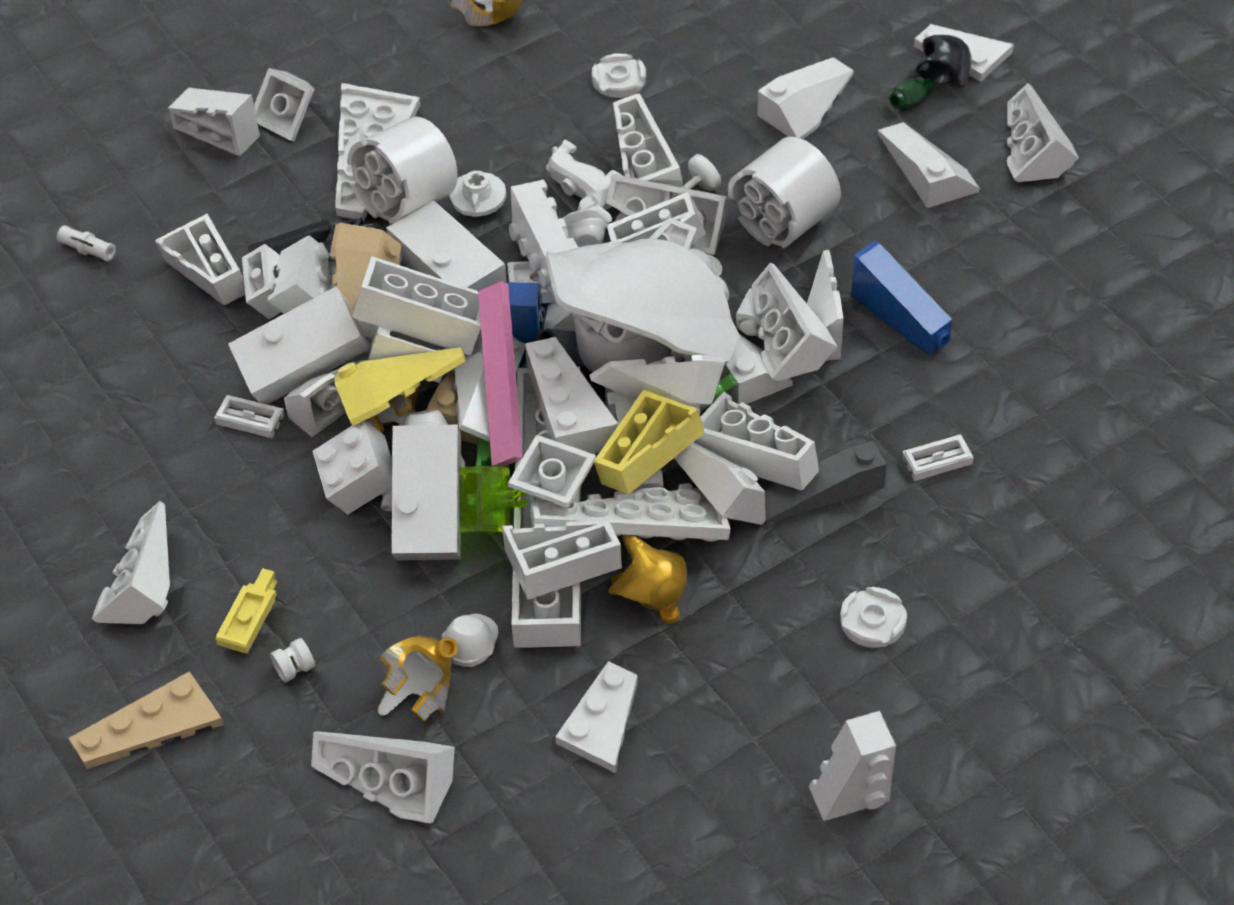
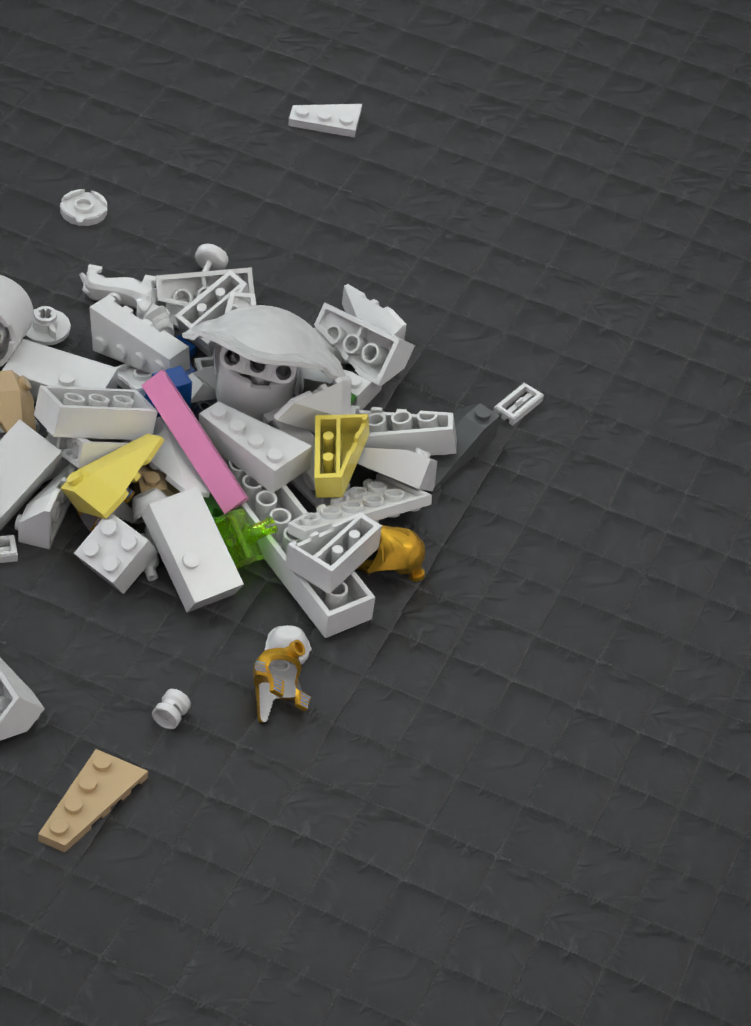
camera: 40 degrees left, 5 degrees down
(248, 613) = (109, 690): light yellow hinge -> none
(395, 772) = (307, 755): white wedge -> none
(552, 471) = (290, 494): white slope -> none
(600, 718) = (424, 662): white wing -> none
(642, 144) = (149, 249): white wedge -> none
(785, 192) = (291, 251): white brick -> none
(801, 98) = (239, 185): white wedge -> none
(859, 769) = (635, 617): white wedge -> none
(873, 617) = (554, 524): white tile -> none
(898, 299) = (422, 303): blue slope -> none
(910, 93) = (314, 159): dark green plant -> none
(928, 169) = (364, 207): white wedge -> none
(947, 59) = (325, 127): black piece -> none
(1036, 140) = (427, 166): white wedge -> none

